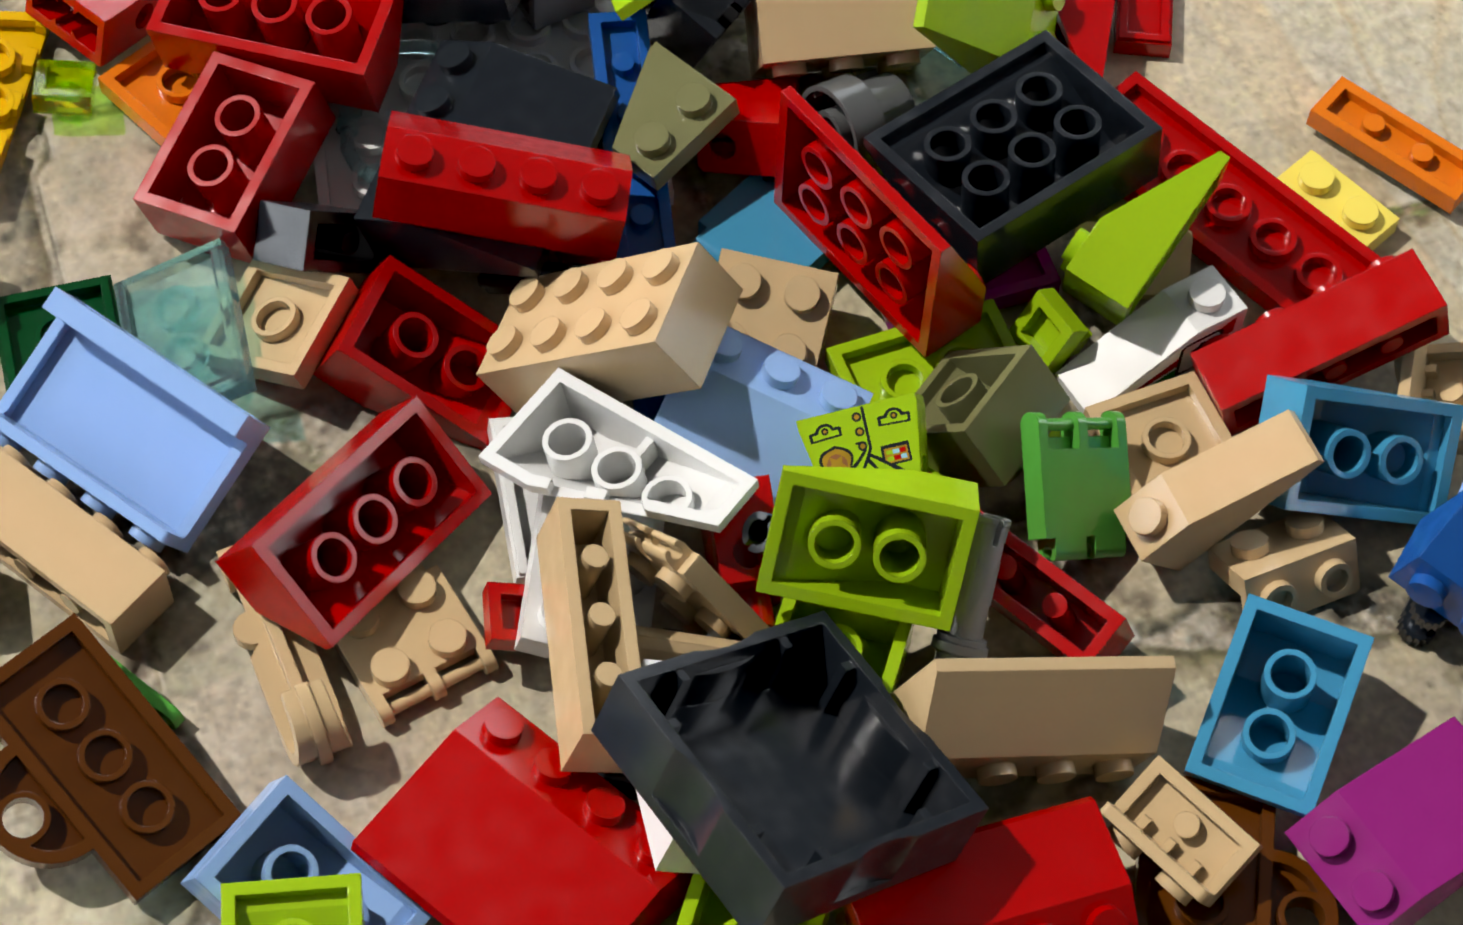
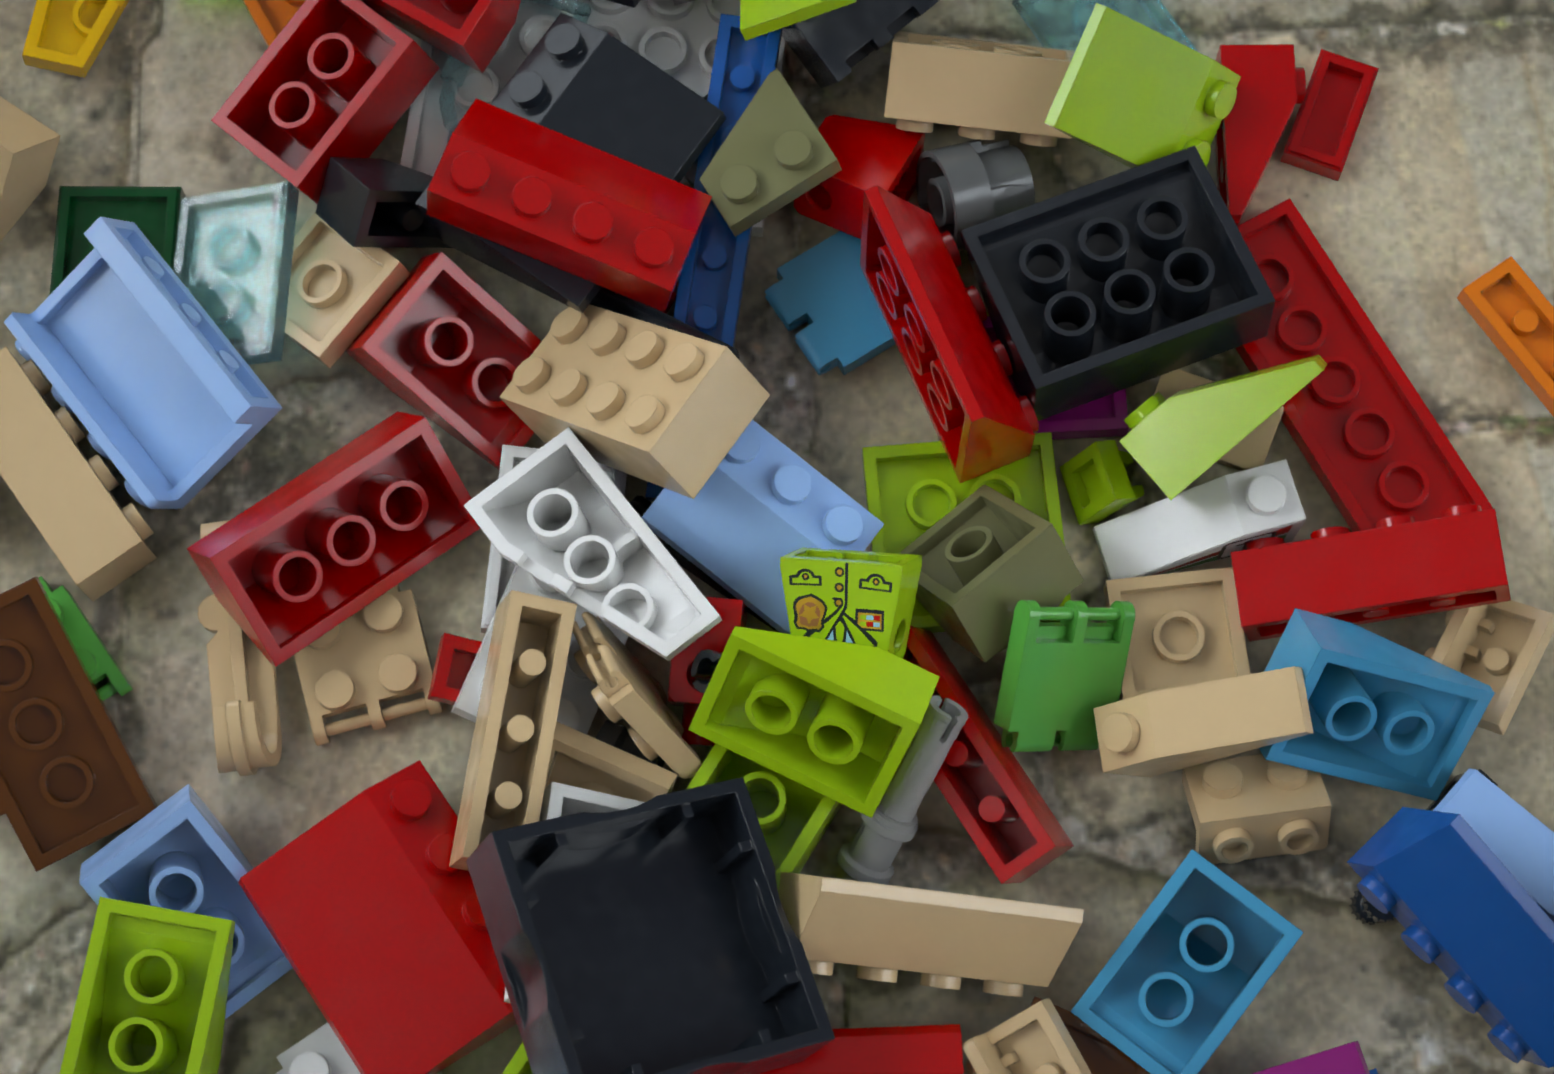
camera: 20 degrees right, 15 degrees up
(782, 303) = (819, 396): tan plate -> none
(1340, 199) = (1457, 400): light yellow plate -> none

